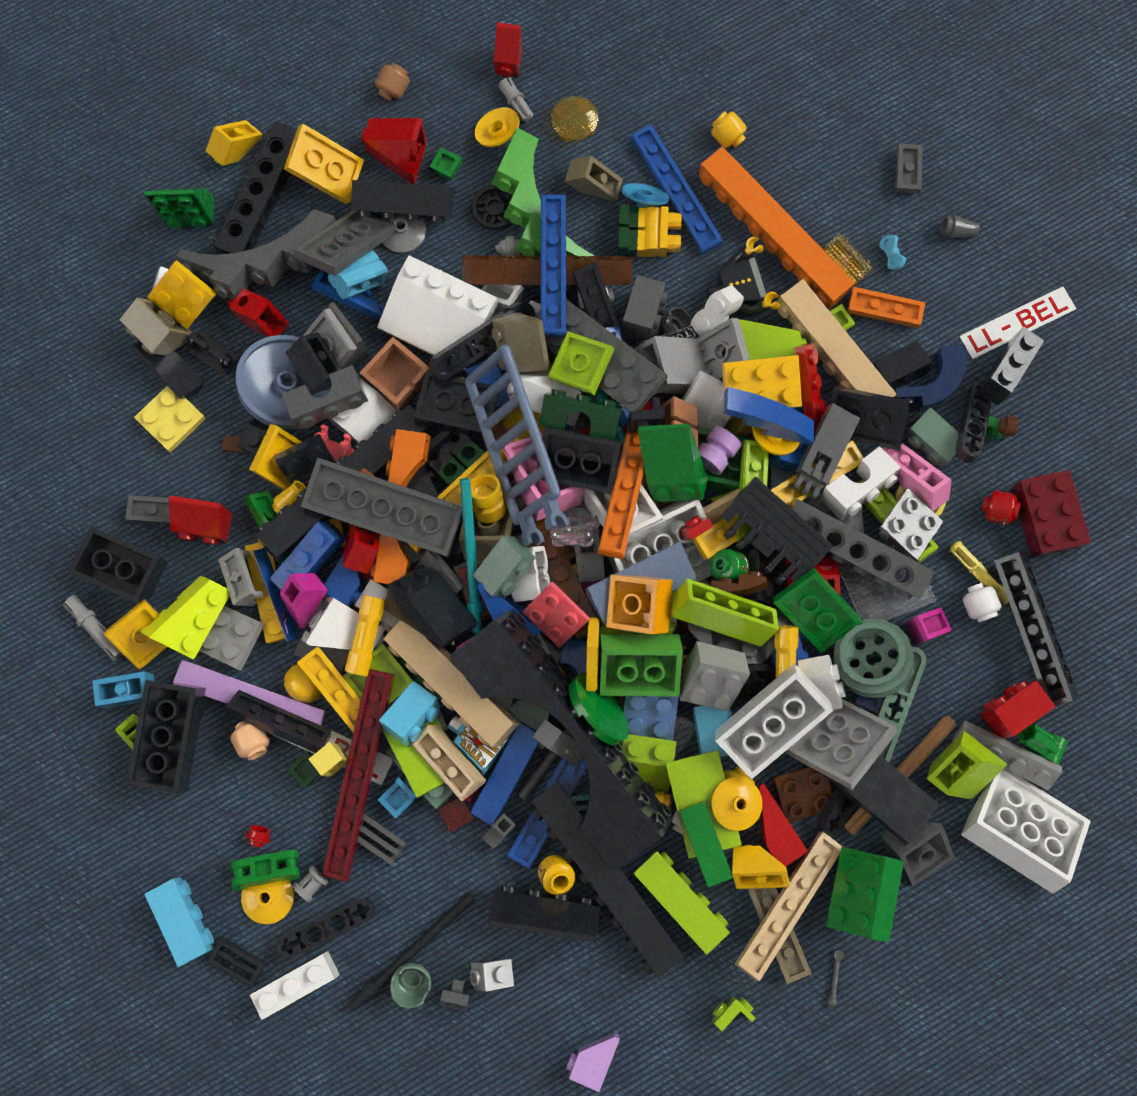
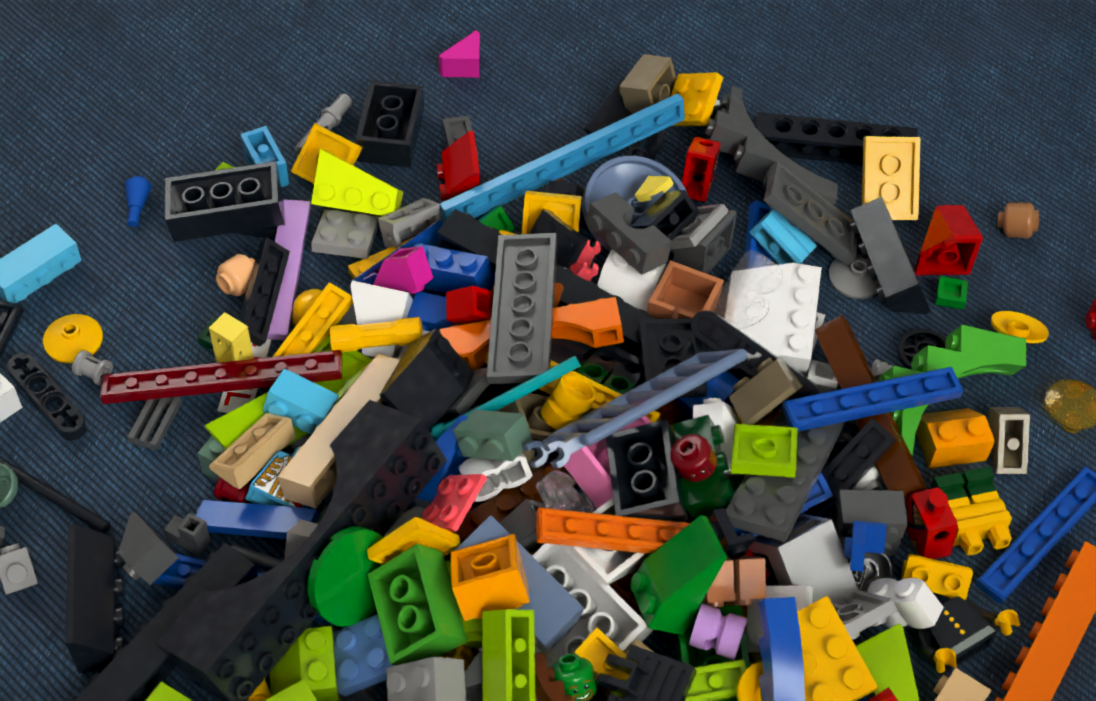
camera: 70 degrees right, 25 degrees down
(54, 479) = (462, 58): none -> dark pink slope
(123, 814) = (137, 192): none -> blue cone
(169, 418) = (557, 128): light yellow plate -> none
(183, 206) = (787, 79): green slope -> none
(220, 436) = (567, 159): none -> dark azure plate
(232, 141) = (878, 103): yellow slope -> none
(258, 835) = (137, 310): red plate -> none
(264, 869) = (101, 322): green plate -> none
(277, 361) = (652, 186): none -> light yellow tile
(394, 323) = (743, 279): none -> clear piece
(398, 797) = (195, 423): dark azure bracket -> none
(455, 814) = (197, 487): clear red plate -> none
(509, 867) = (144, 551): none -> dark grey slope
(515, 99) = (1063, 340): light grey axle -> none
(556, 874) = (143, 599): yellow head -> none
(583, 216) = (954, 437): none -> light orange slope
(590, 410) = (693, 458): none -> dark red head
(645, 195) = (1016, 494): dark azure dish -> none
(653, 263) = (930, 523): none -> red torso
(670, 321) = (866, 538): none -> blue bracket
(695, 527) = (609, 625): red plate -> none
(697, 280) = (940, 576): none -> yellow bracket

